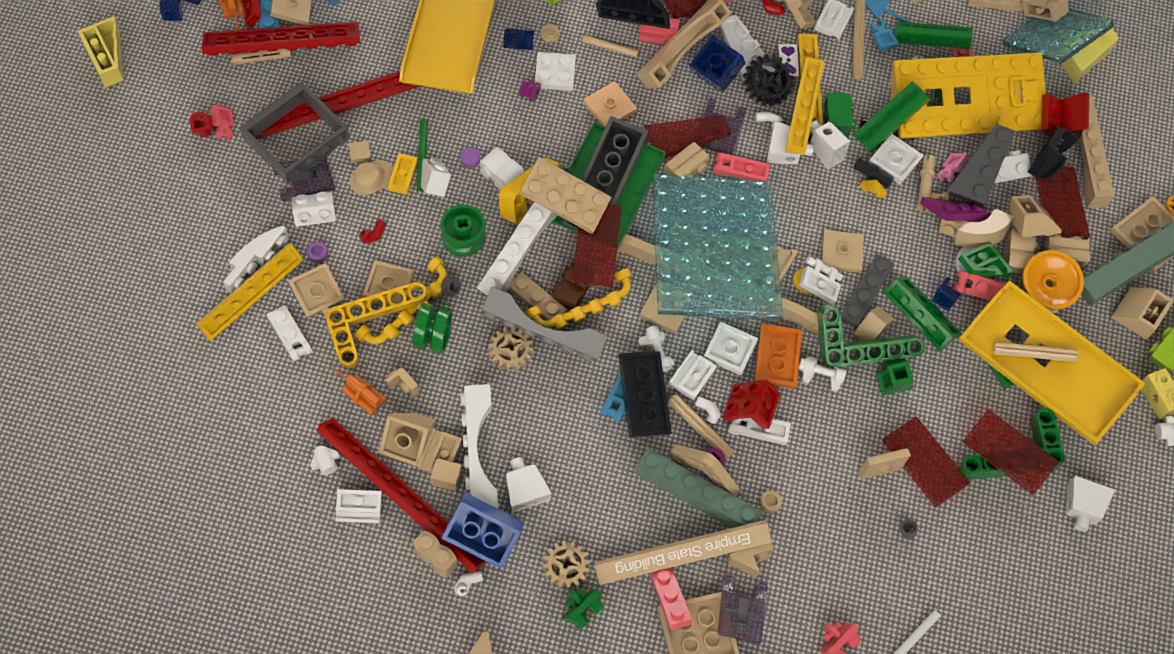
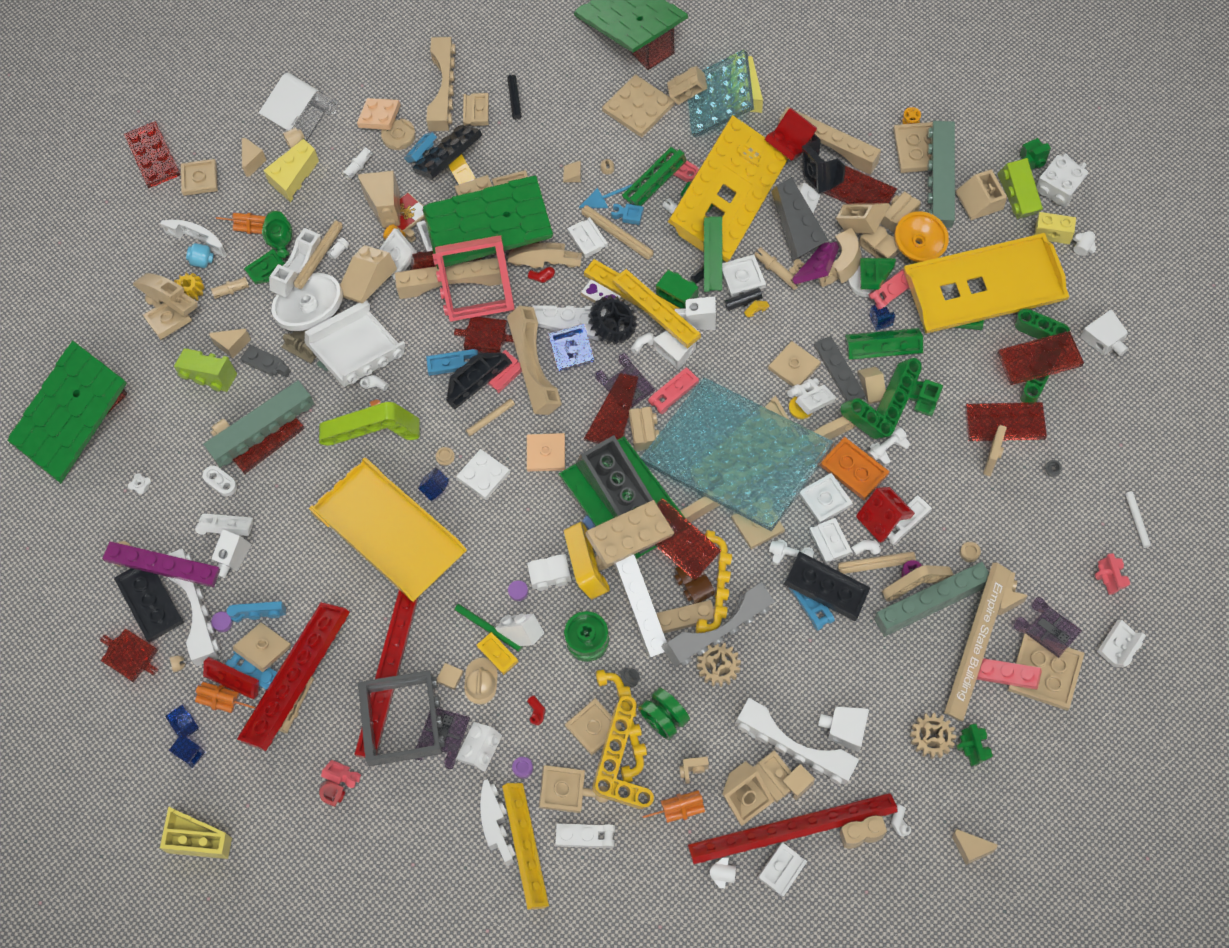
camera: 45 degrees left, 0 degrees up
(483, 530) = (871, 780): blue brick -> none
(530, 89) = (489, 504): magenta wheel -> none
(953, 164) = (775, 239): bright pink plate -> none
(1035, 351) = (973, 287): tan axle -> none

